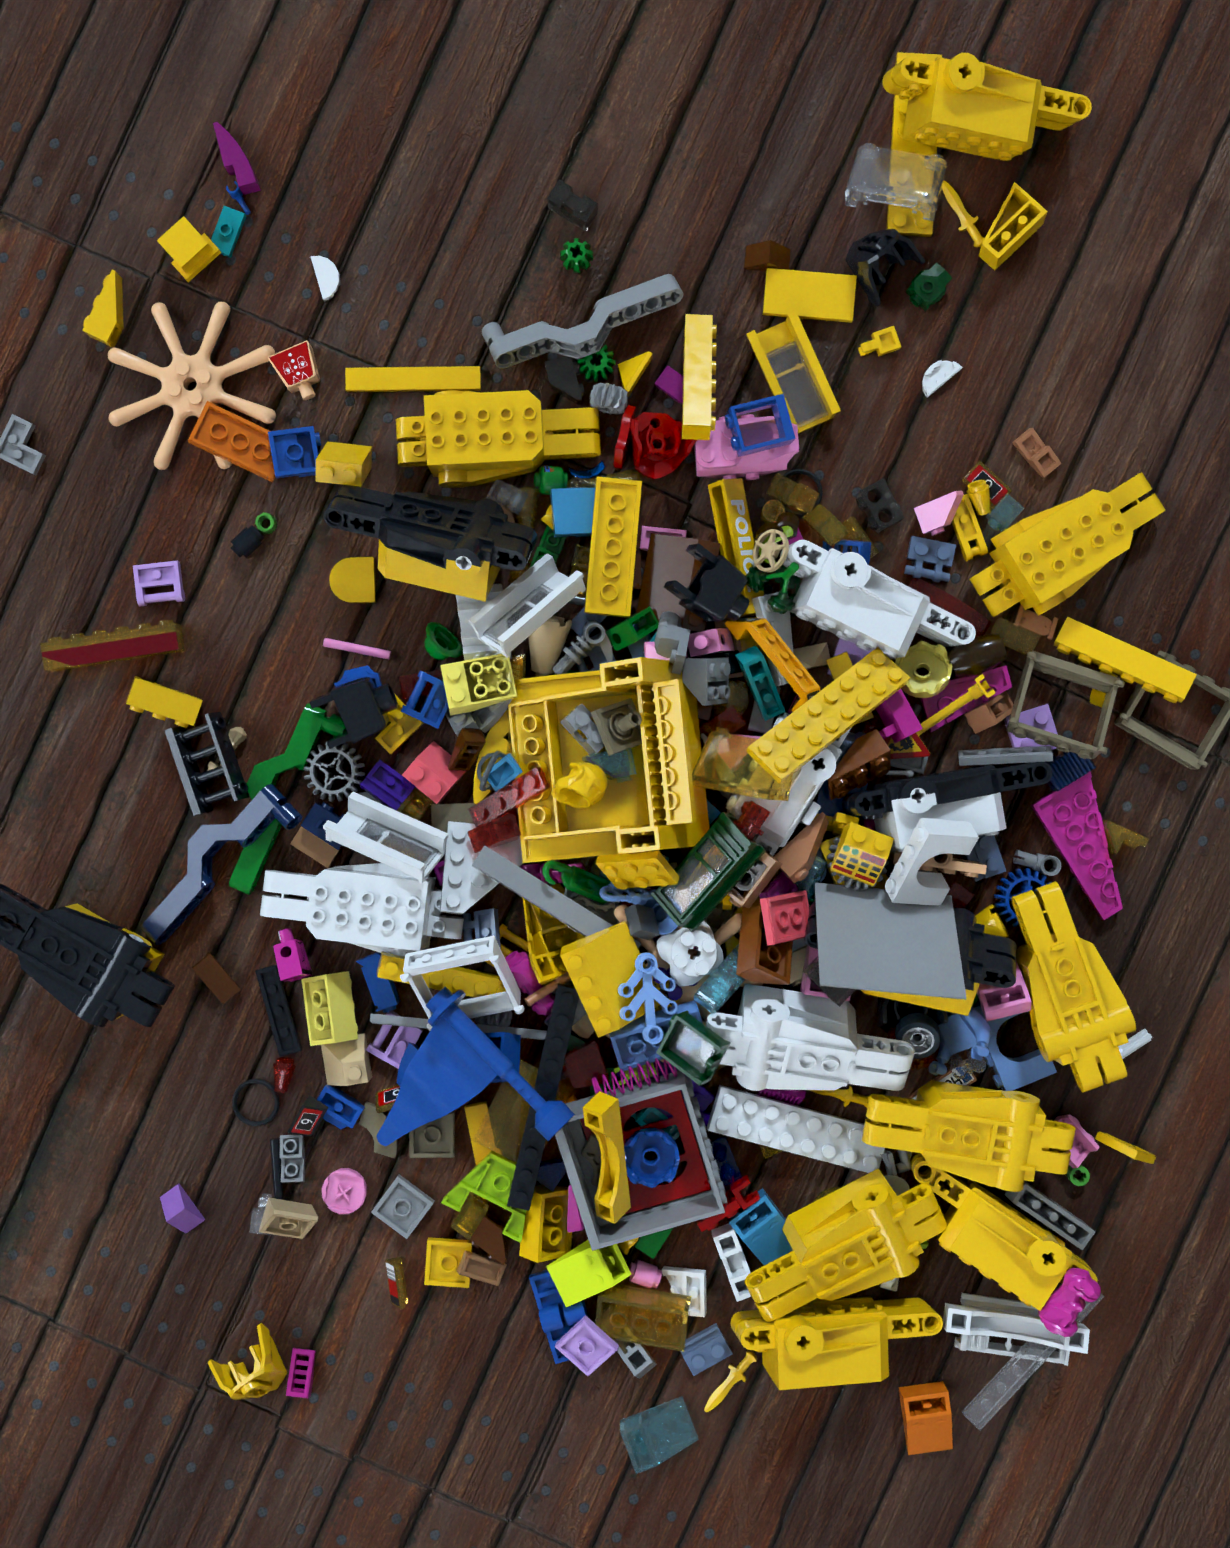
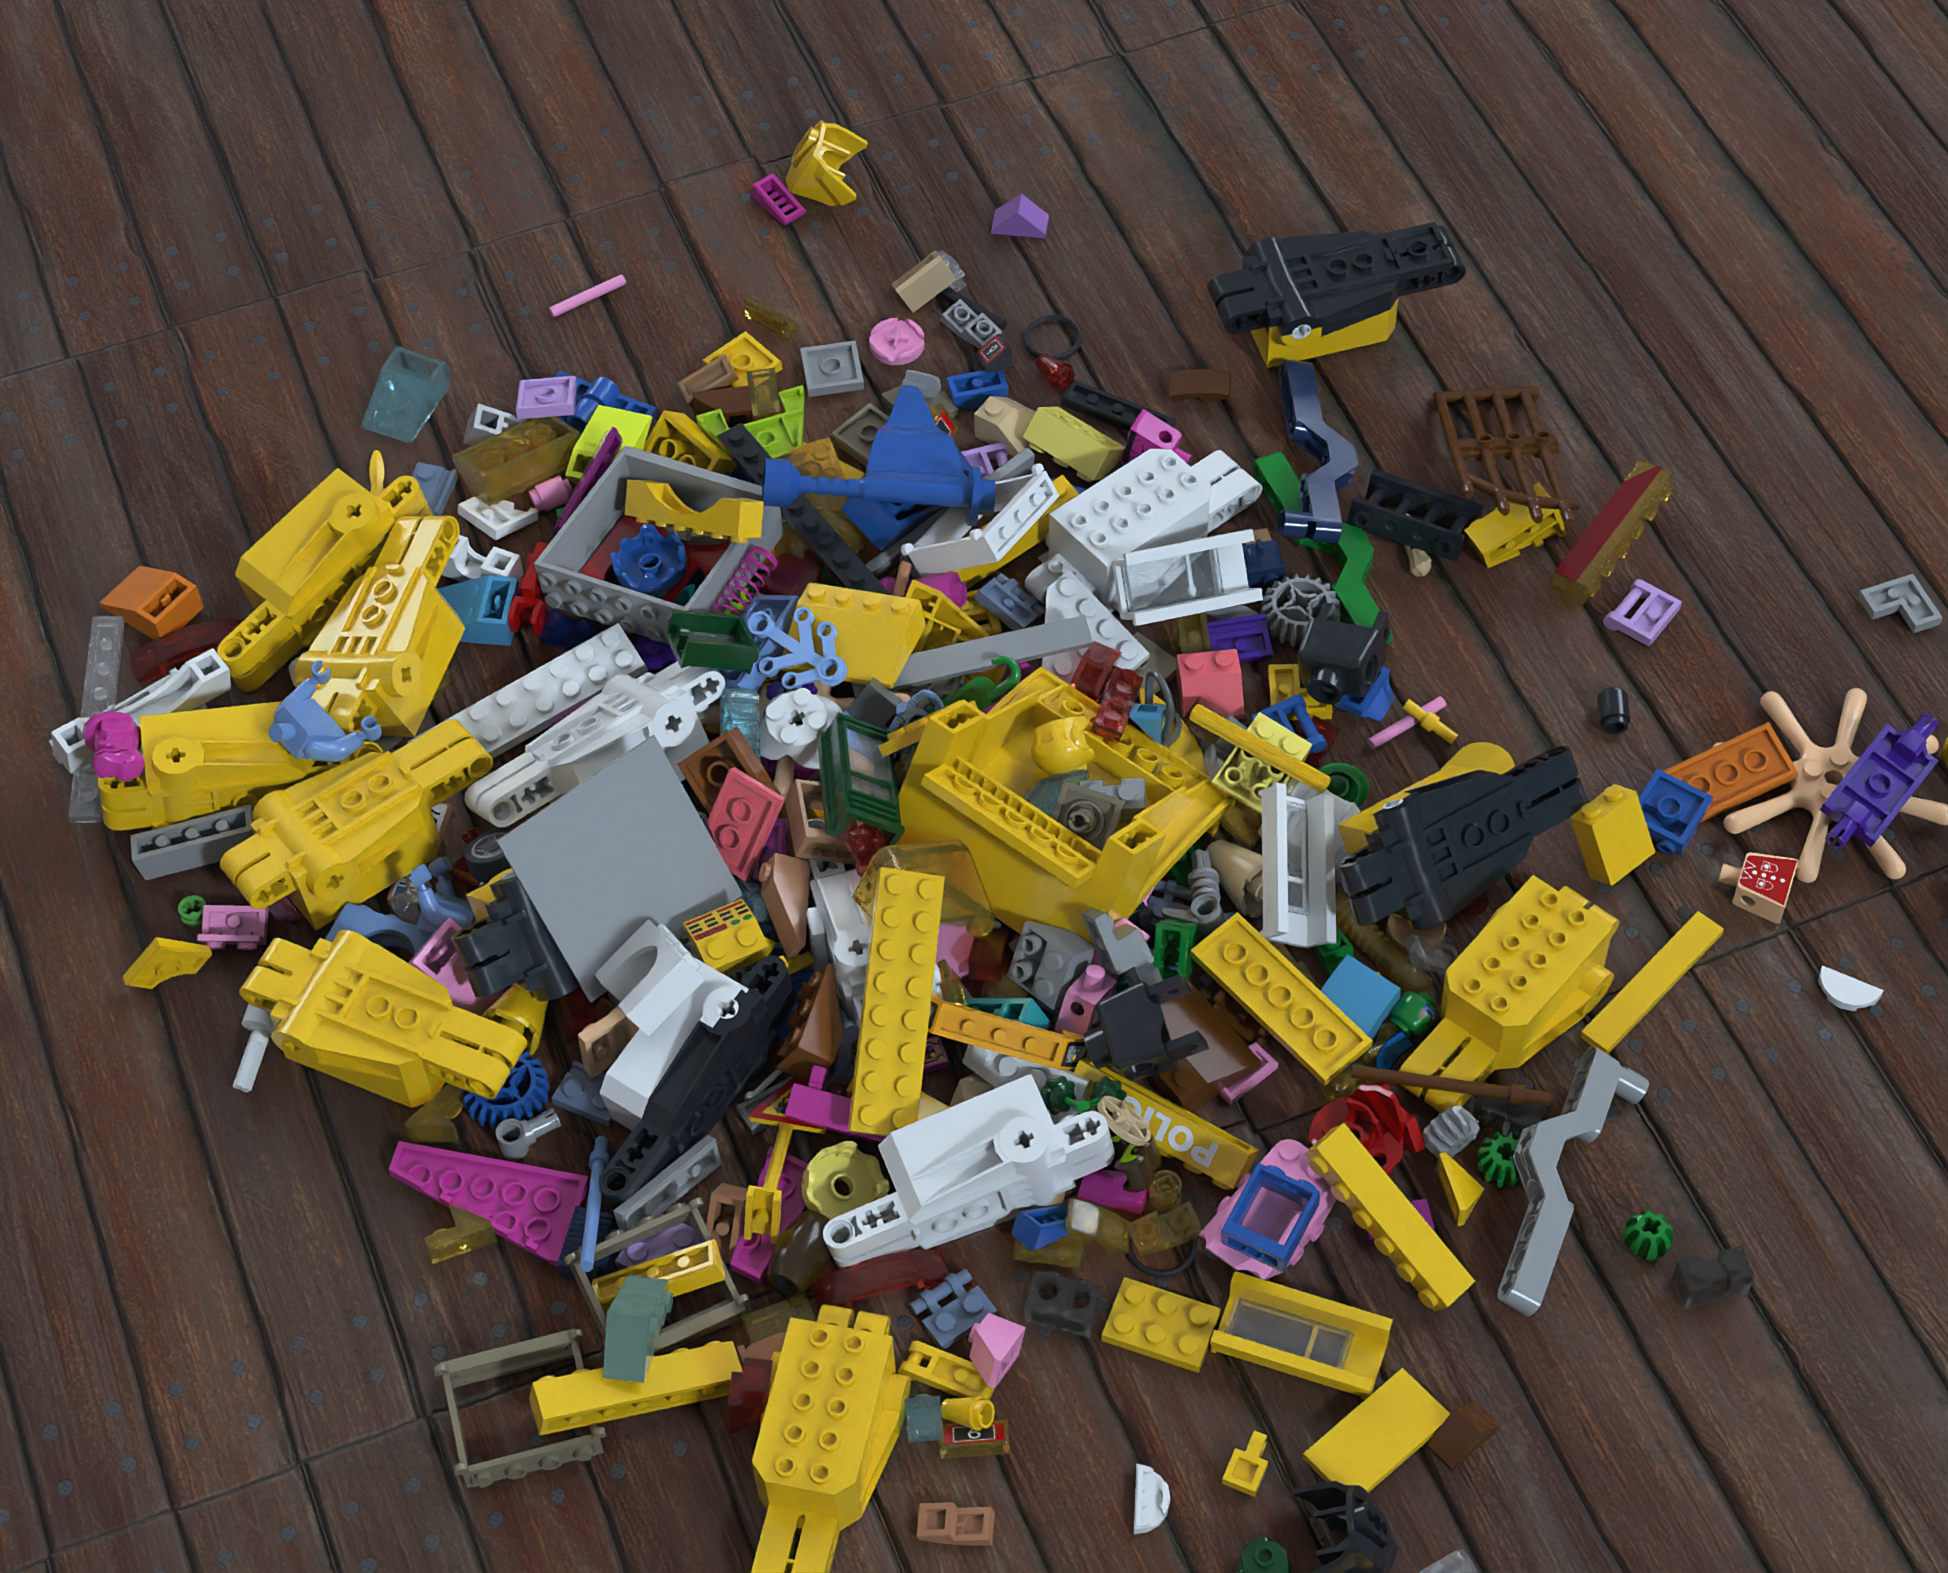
camera: 135 degrees right, 35 degrees down
(111, 751) = (1512, 447): none -> reddish brown piece
(176, 349) = (1880, 783): none -> dark purple plate
(273, 524) = (1618, 751): bright green axle -> none
(347, 634) = (1430, 721): none -> yellow bar
(366, 1141) = (927, 383): none -> light grey piece
(476, 684) = (1260, 748): none -> yellow axle
(480, 1411) = (587, 295): none -> bright pink bar
(561, 379) = (1516, 1093): none -> reddish brown bar
(628, 1252) = (595, 469): none -> magenta slope
(768, 715) = (951, 984): none -> clear yellow tile
(843, 452) = (1161, 1324): none -> yellow plate
(930, 1365) = (180, 645): none -> clear red slope
(955, 1210) = (310, 731): none -> medium blue torso
(1020, 807) = (597, 1163): none -> medium blue bar
(1057, 710) = (683, 1269): none -> yellow slope
(1079, 913) = (432, 1120): none -> clear yellow slope
(1082, 597) = (748, 1393): none -> clear red slope
(1103, 685) = (634, 1327): none -> sand green wedge

